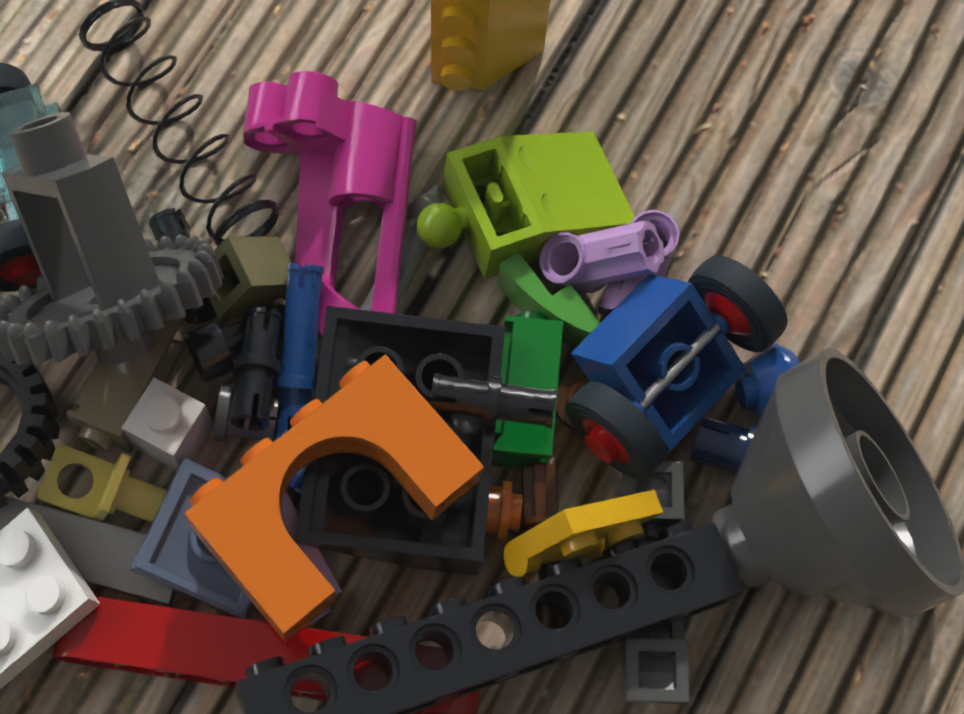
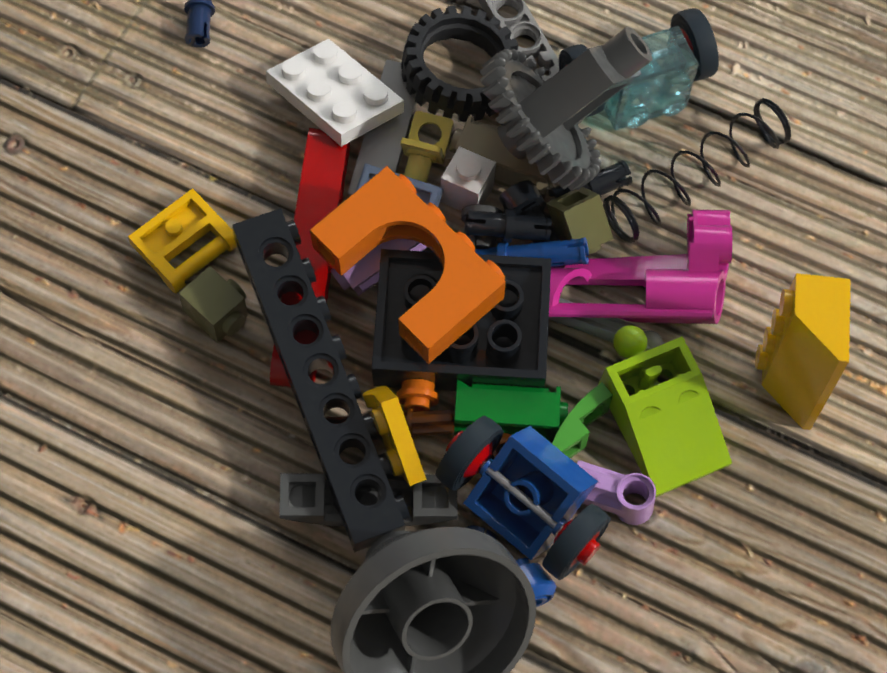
camera: 90 degrees right, 5 degrees down
(493, 400) = (484, 365): black pin -> none
(603, 256) = (612, 451): lavender piece -> none

